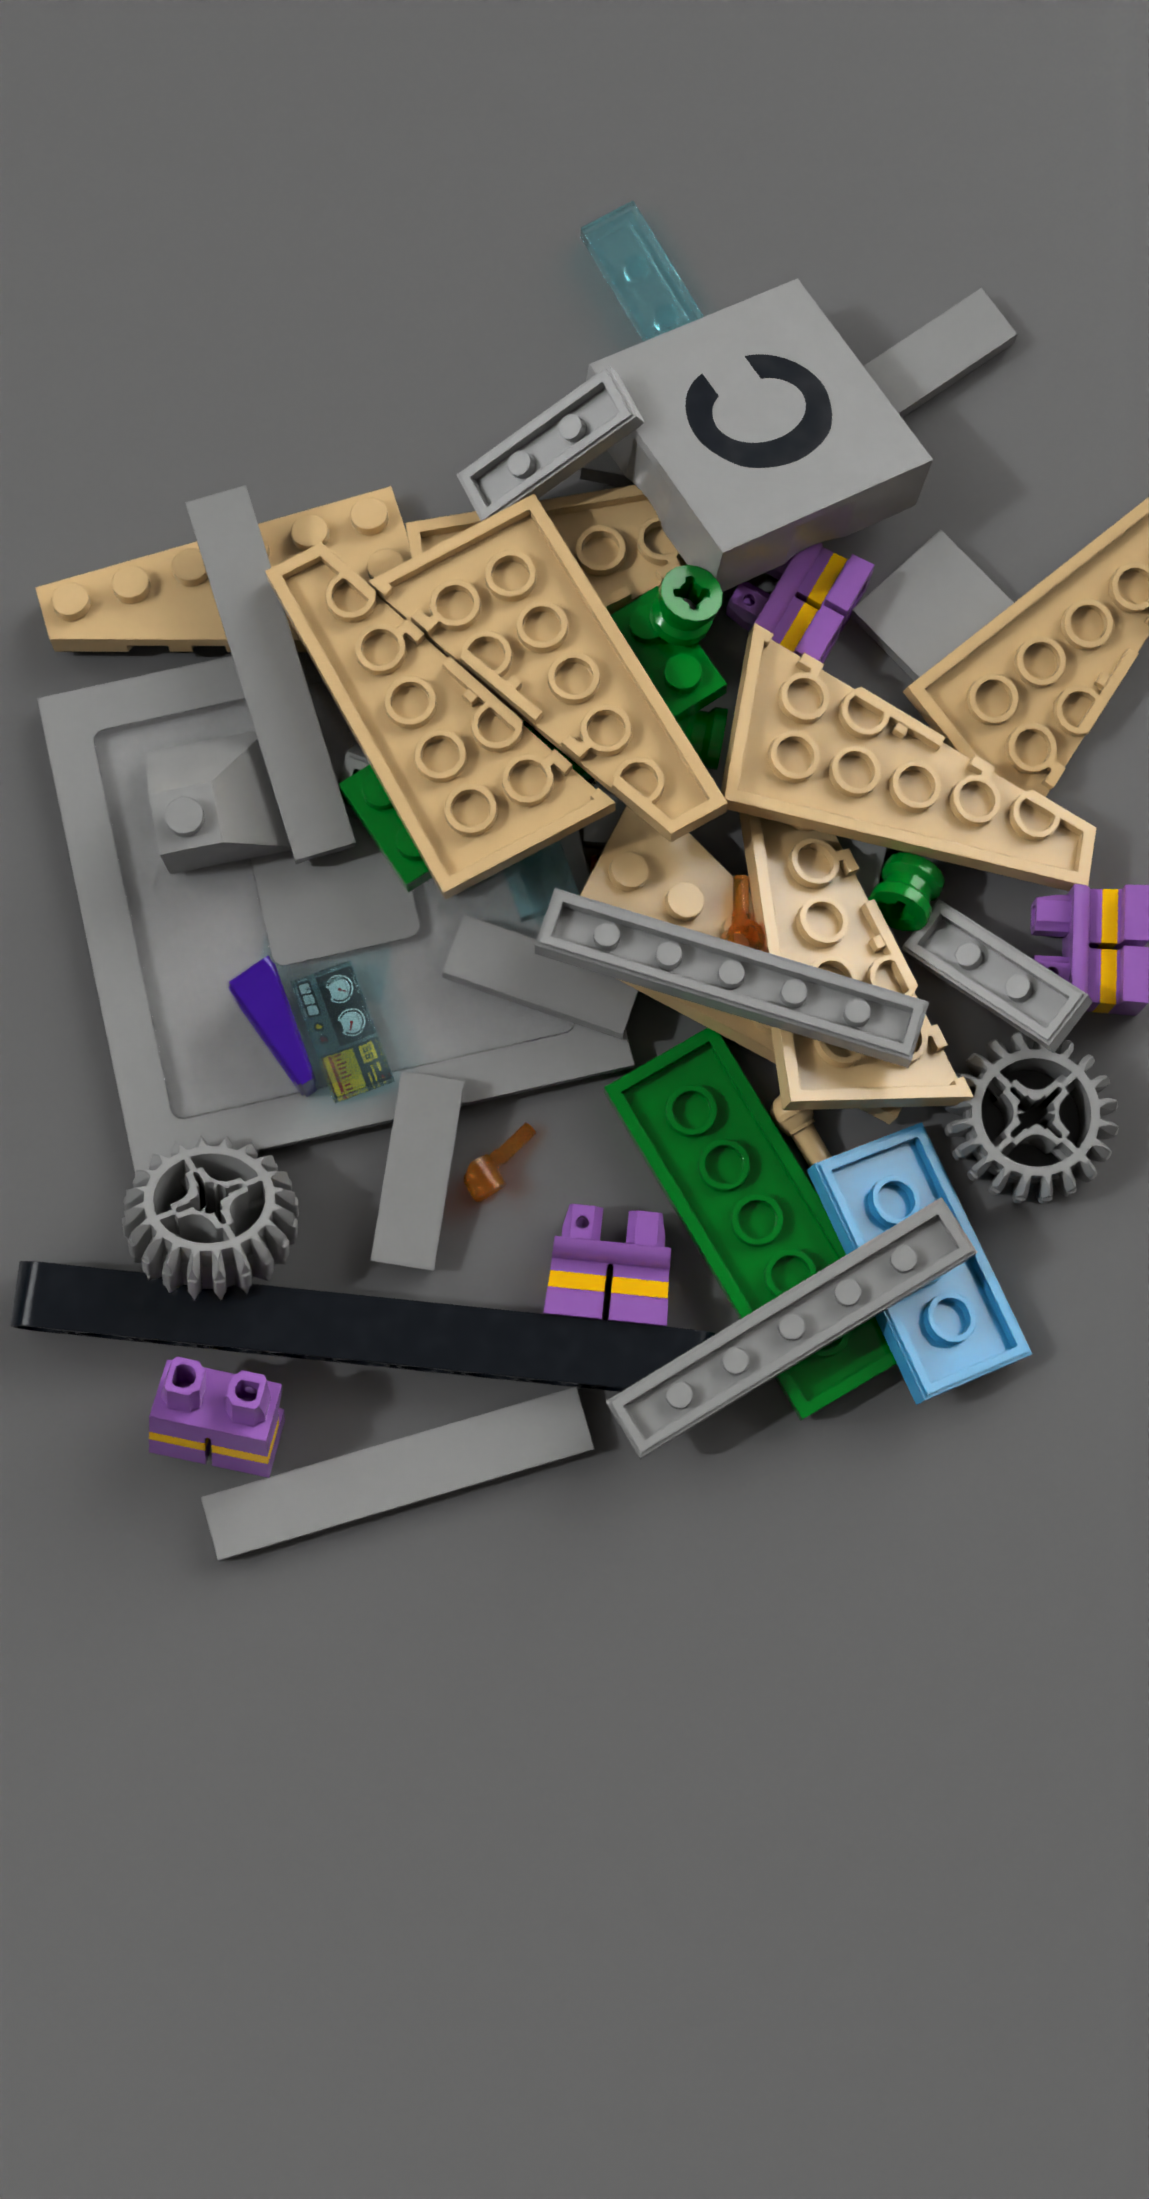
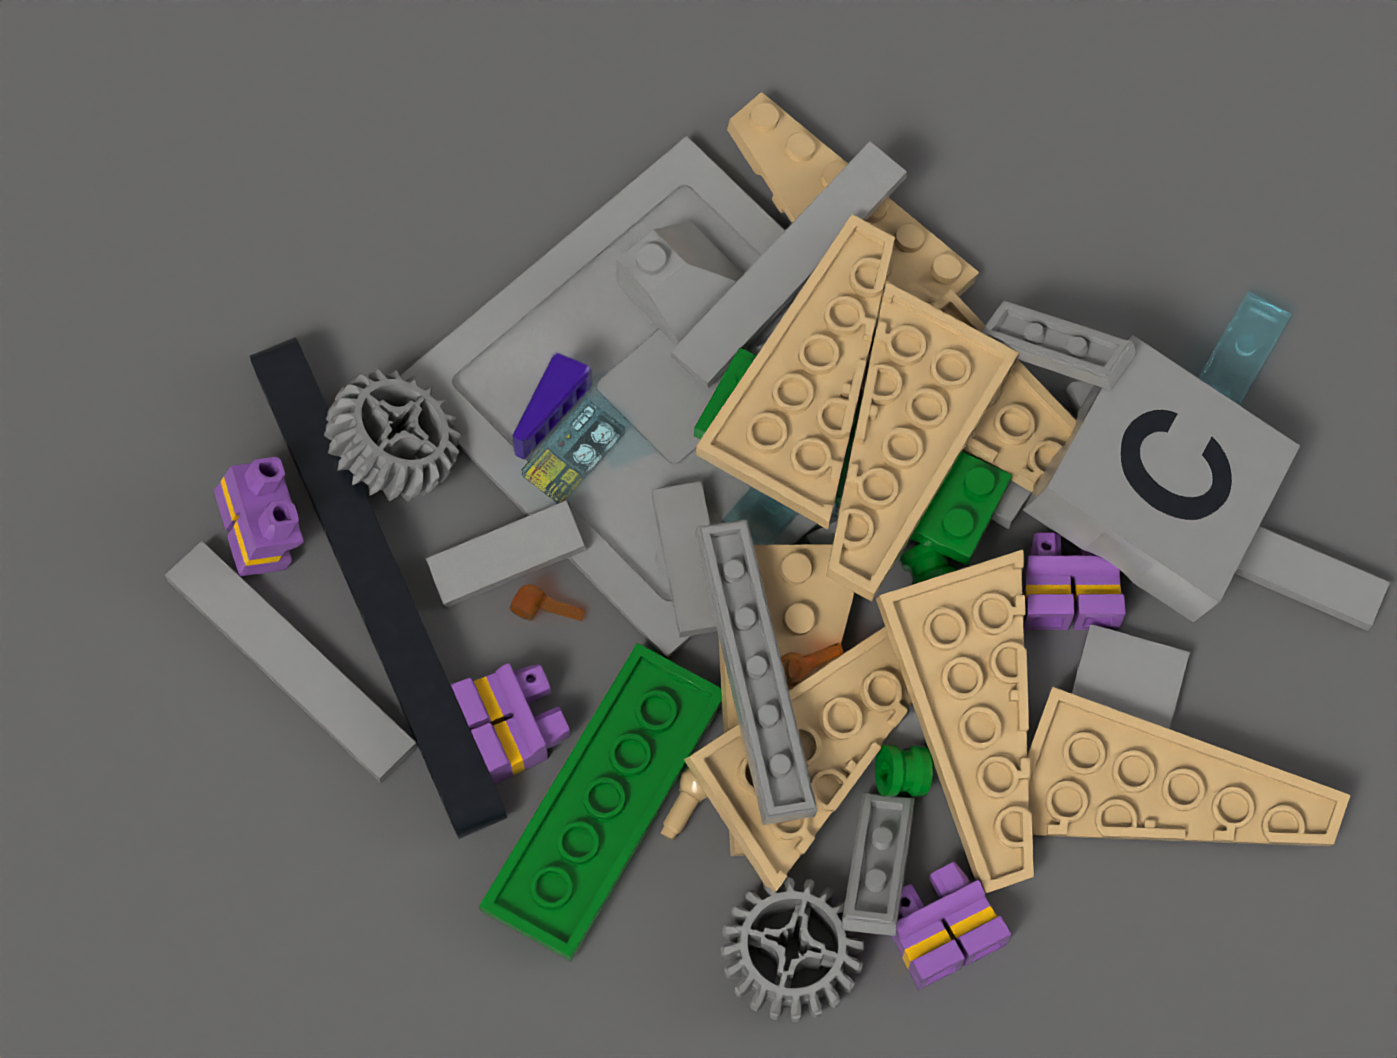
camera: 60 degrees right, 10 degrees down
(673, 617) = (993, 502): green wheel -> none
(791, 1328) = (536, 855): light grey tile -> none
(958, 1322) = (638, 927): dark azure tile -> none

